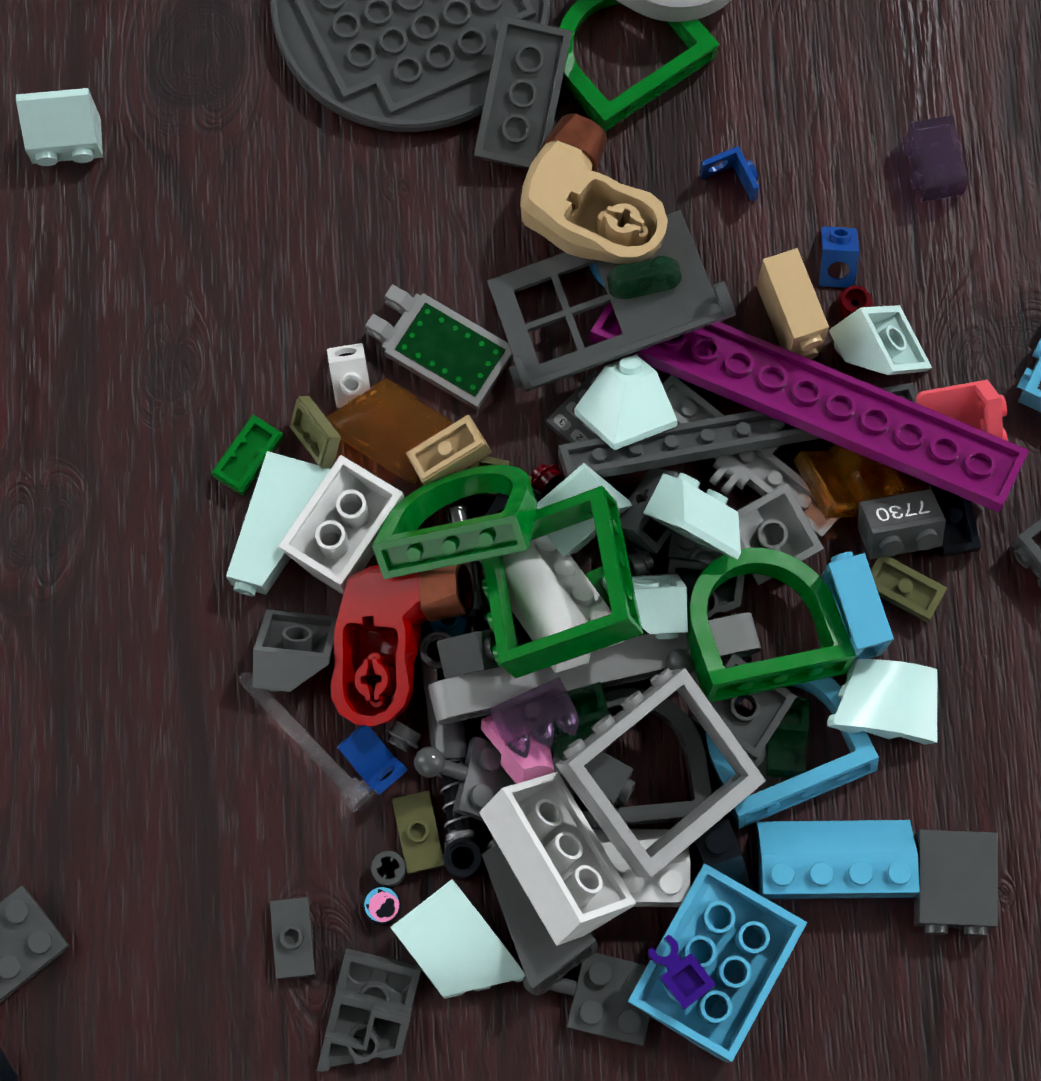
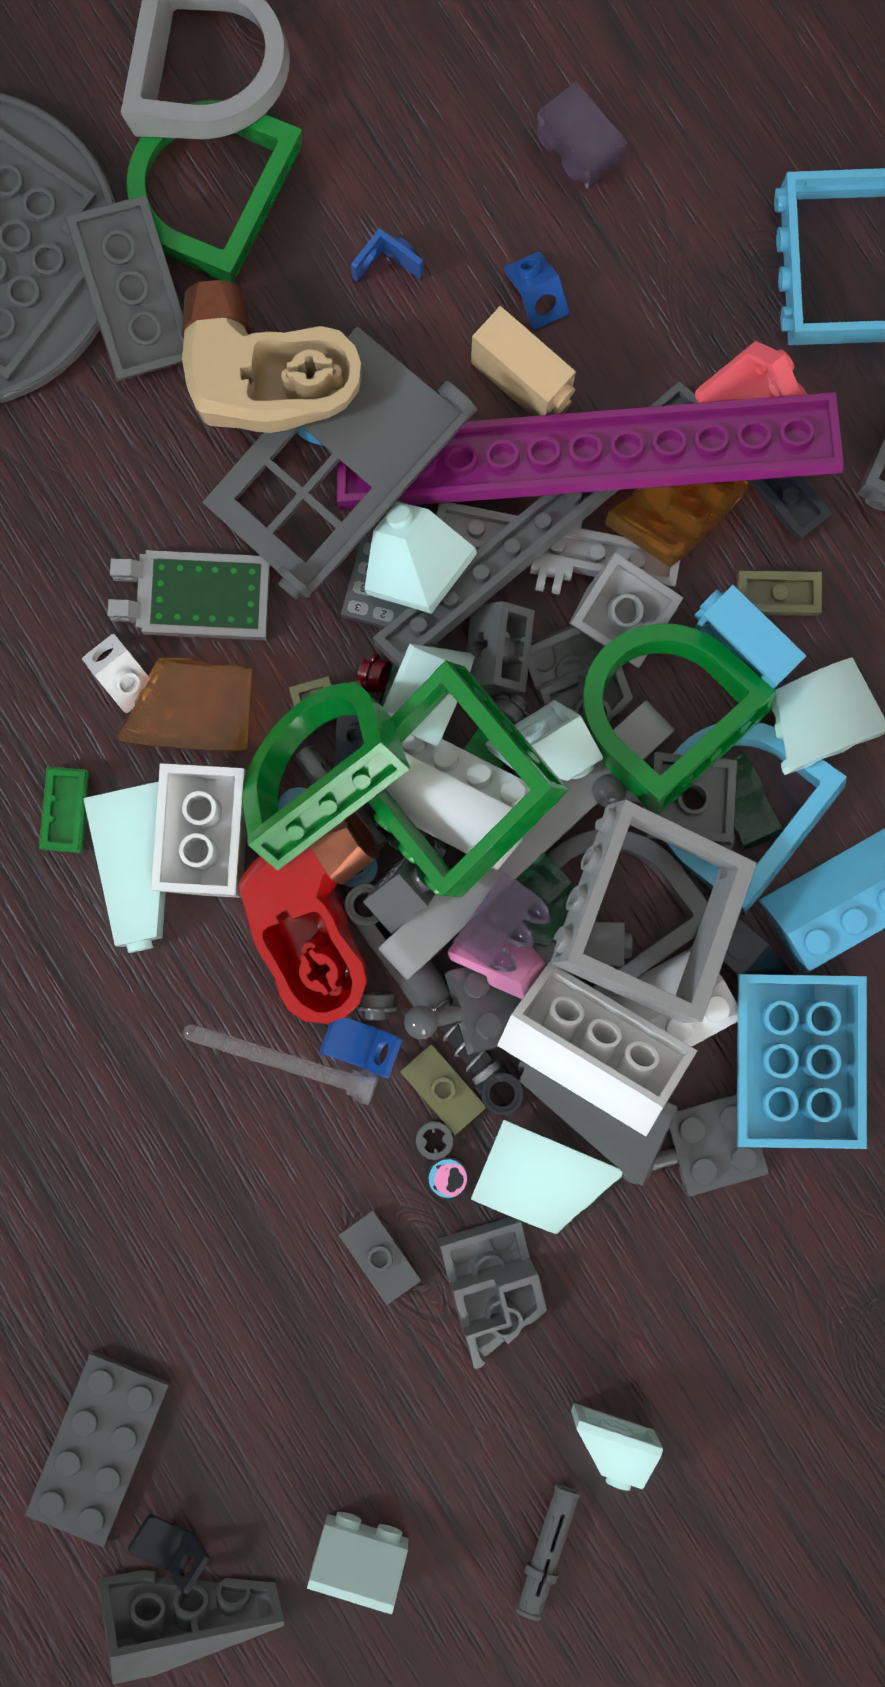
camera: 30 degrees left, 10 degrees up
(291, 649) = (220, 979): dark grey slope -> none
(315, 432) = (120, 752): olive plate -> none
(449, 451) = (264, 699): tan slope -> none
(644, 277) = (363, 418): clear green plate -> none
(684, 977) = (781, 1095): dark purple plate -> none
(696, 514) = (546, 634): light aqua slope -> none
(850, 294) = (580, 319): dark red plate -> none
(880, 341) = (626, 358): light aqua slope -> none
(901, 524) = (745, 532): dark grey brick -> none

